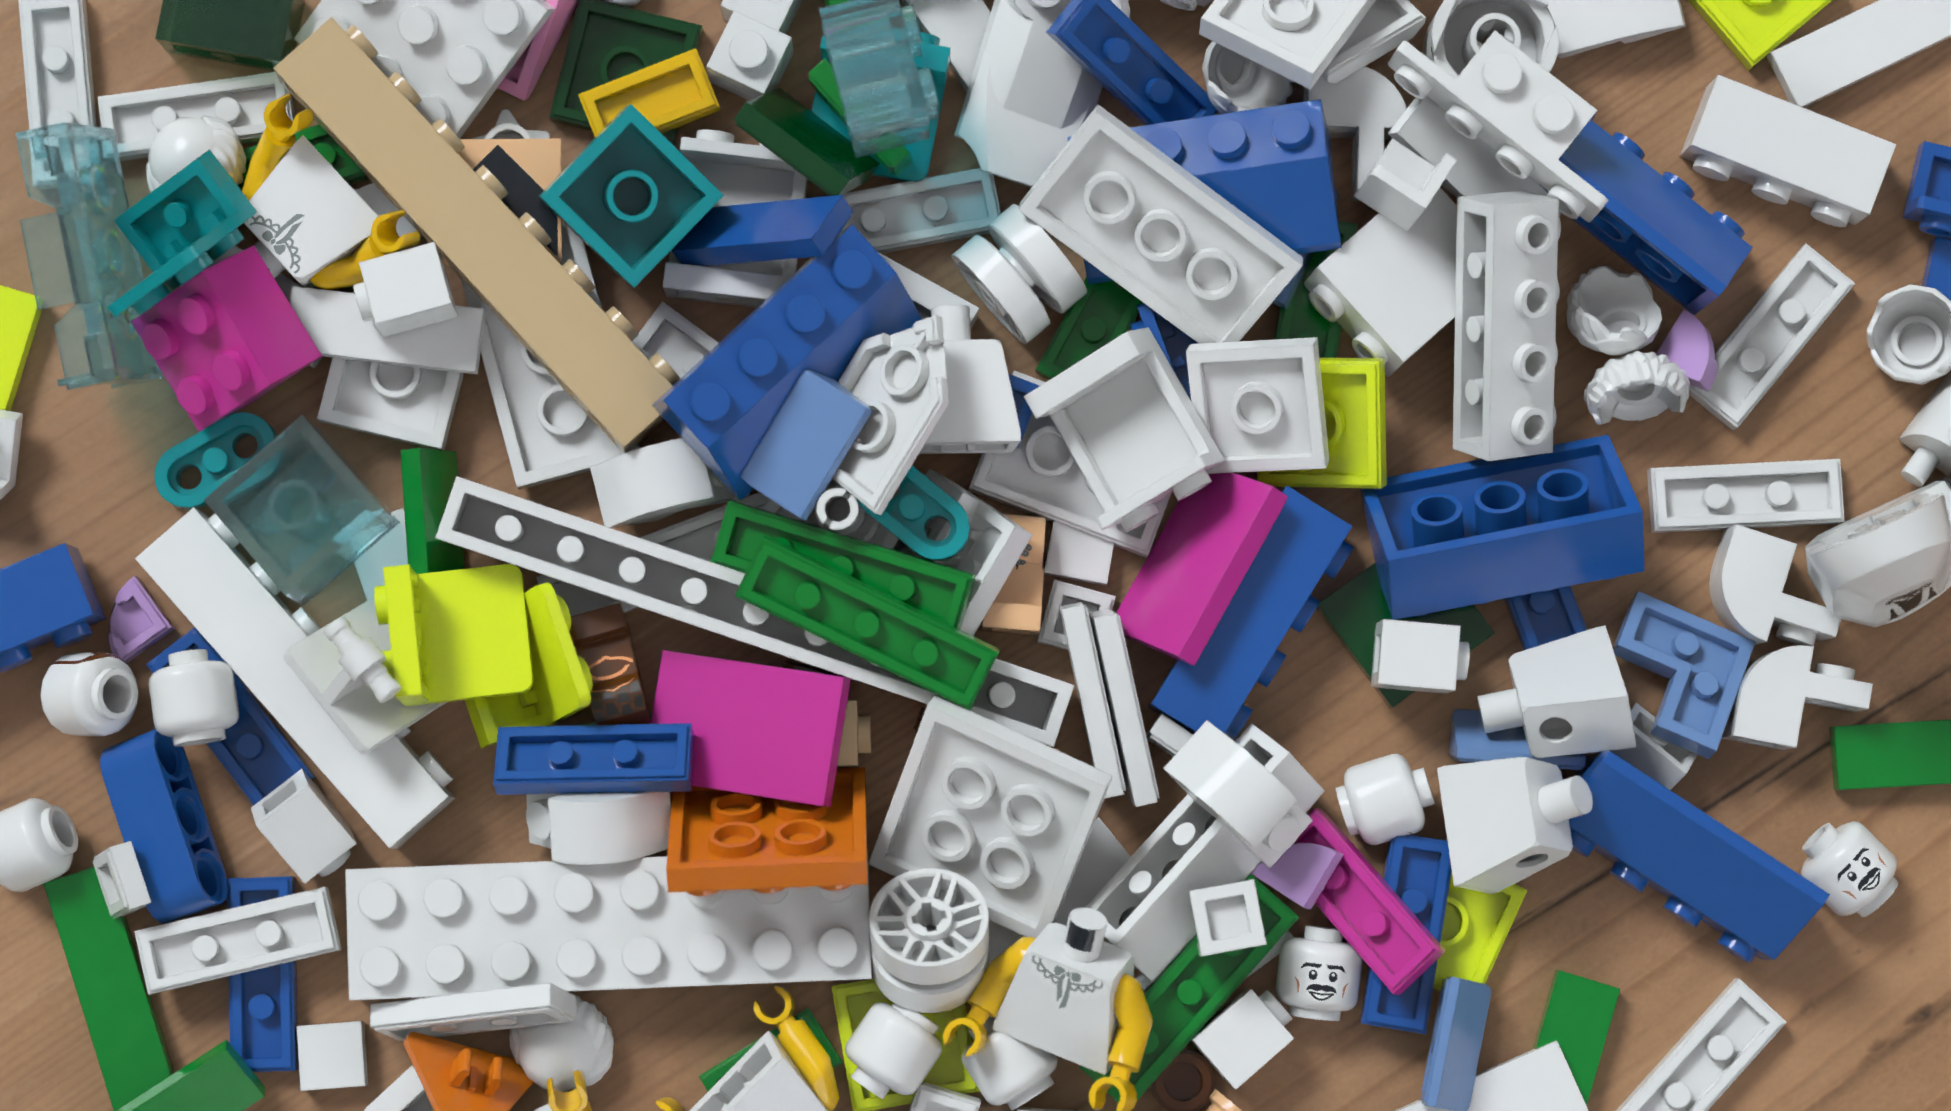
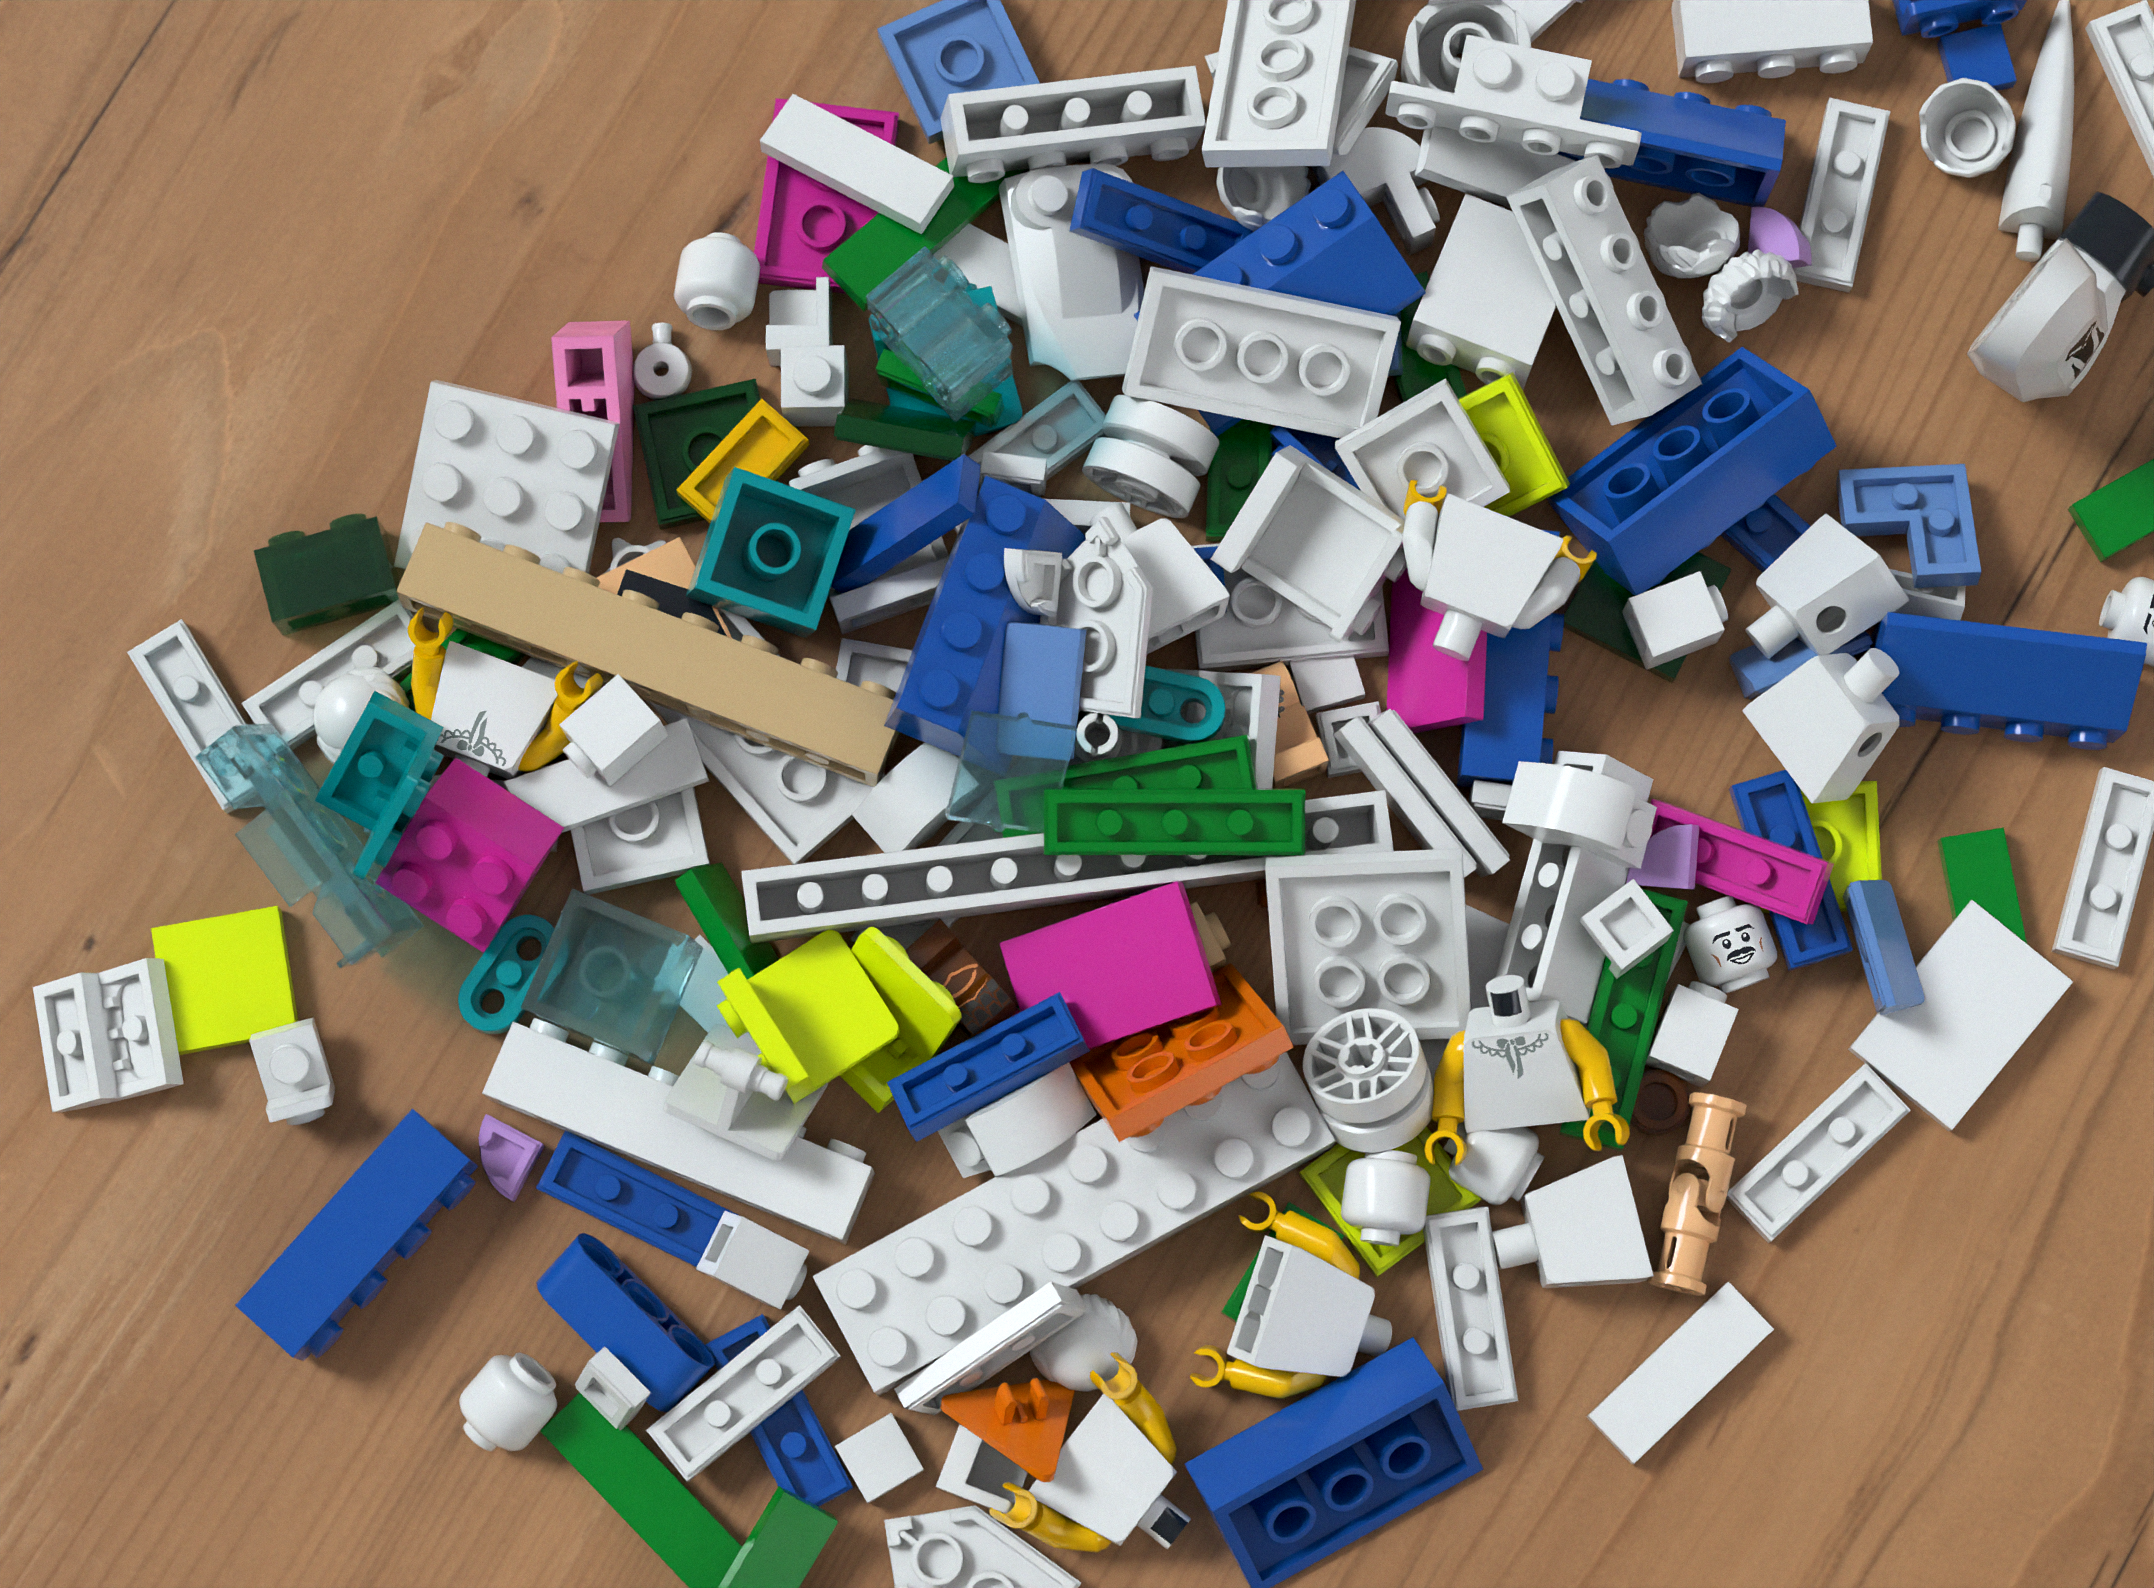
camera: 15 degrees left, 5 degrees down
(89, 694) = (499, 1237): white head -> none
(193, 698) = (598, 1192): white head -> none
(740, 501) = (1007, 768): none -> clear light blue piece
(849, 340) = (1034, 579): none -> white tile
(887, 229) = (1015, 470): none -> white tile
(1260, 531) = (1483, 569): none -> white torso
(1384, 799) = (1709, 761): white head -> none
(1403, 184) = (1452, 211): white panel -> none
(1745, 495) = (1889, 343): white tile -> none
(1749, 586) = (1936, 423): white brick -> none
(1775, 691) = (2007, 495): white brick -> none

